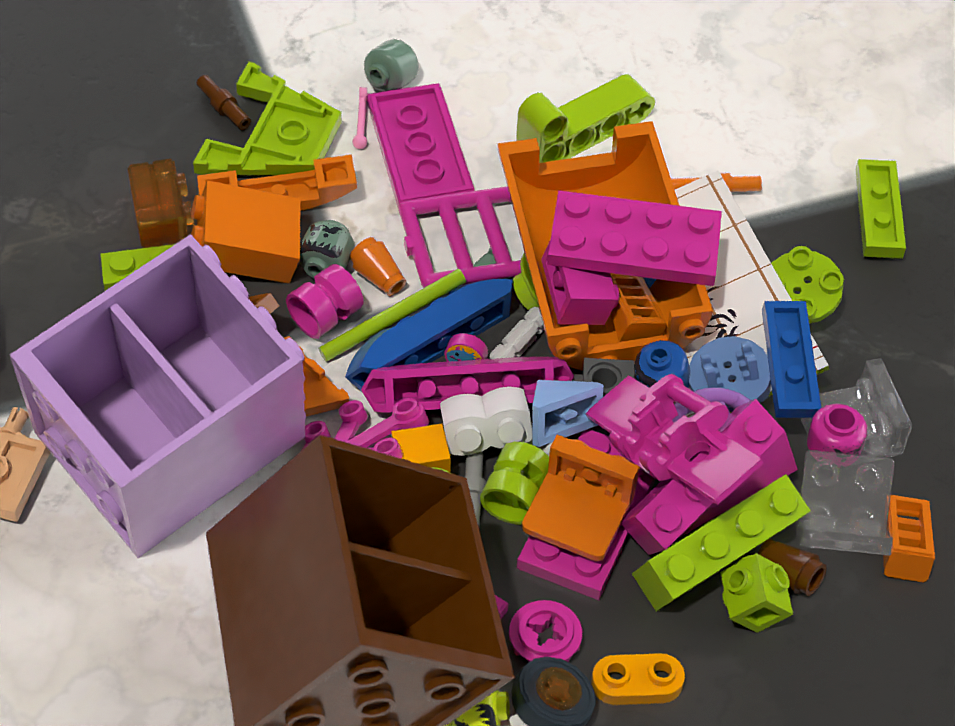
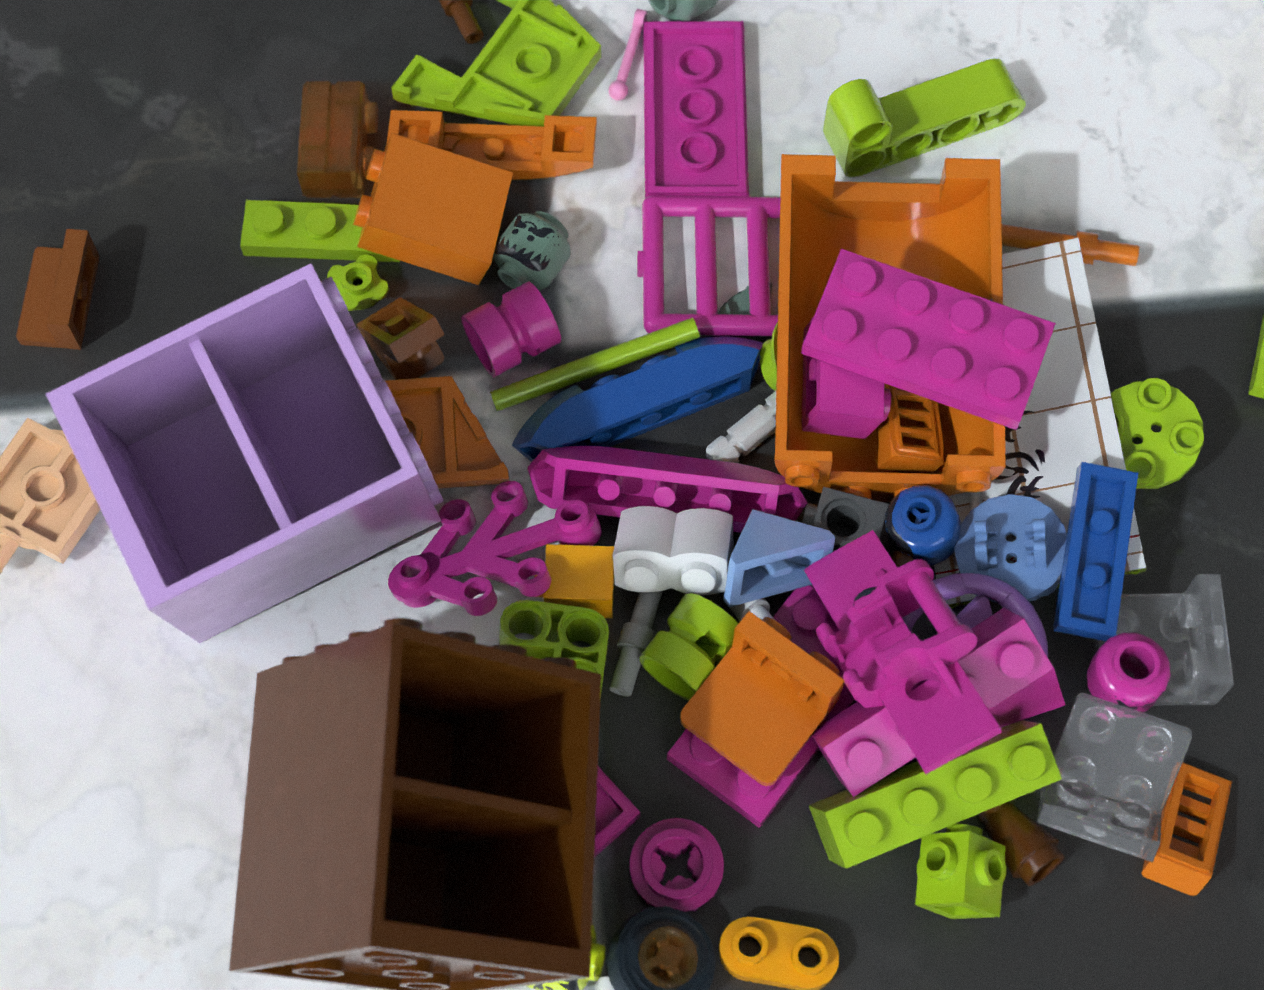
camera: 15 degrees right, 15 degrees up
(377, 265) = (593, 286): orange cone -> none
(465, 347) = (675, 437): tile -> none

